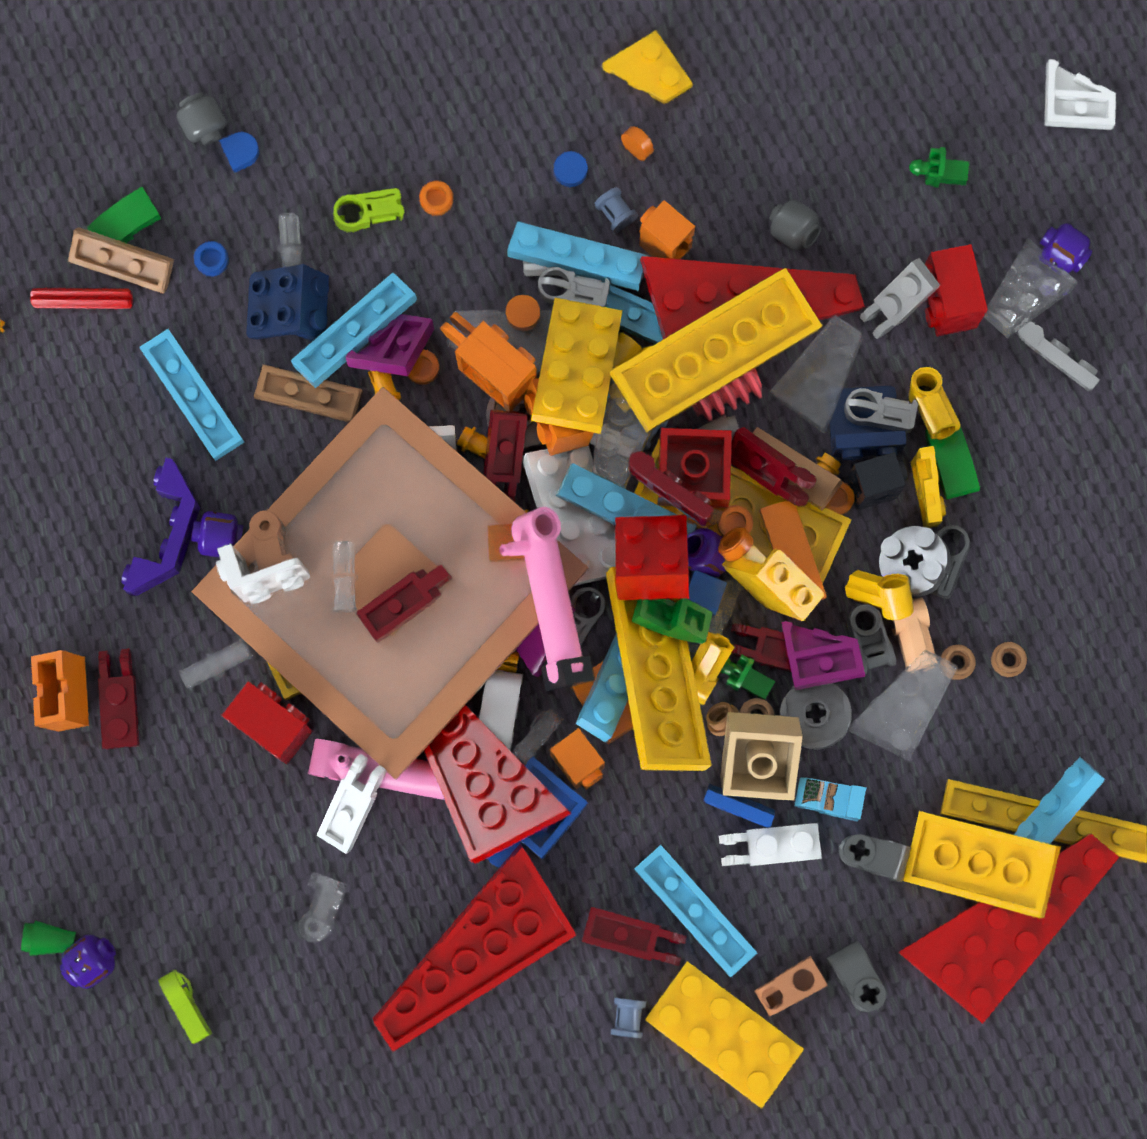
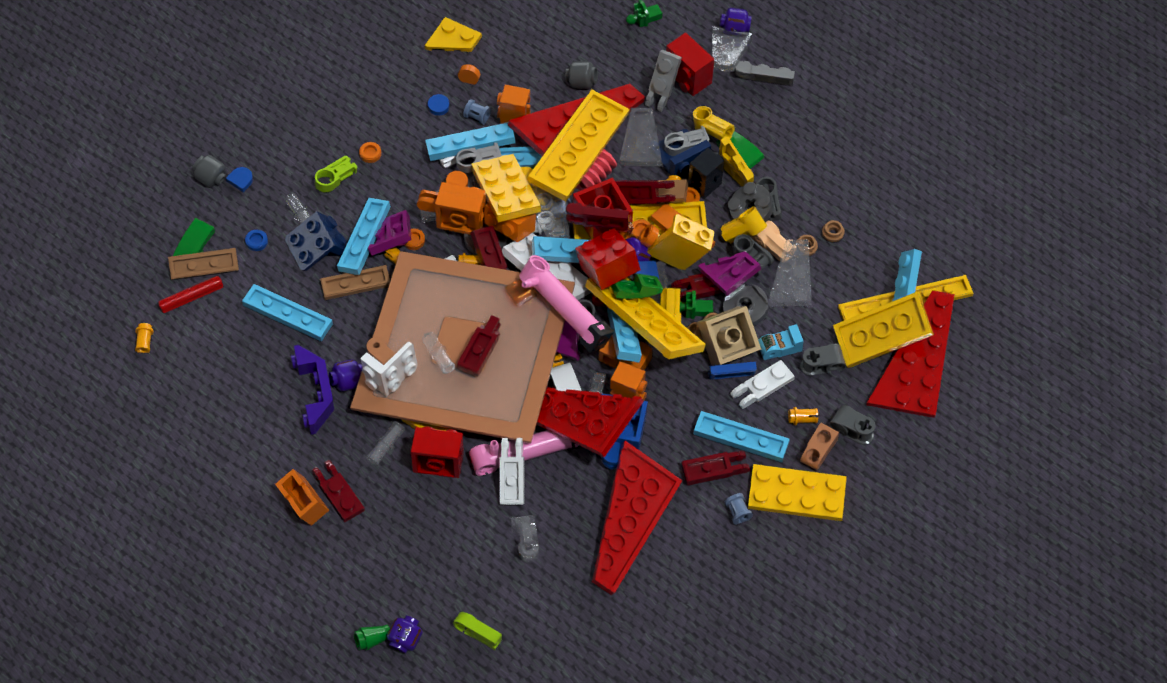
camera: 30 degrees left, 20 degrees down
(798, 924) = (802, 415): none -> light orange pin

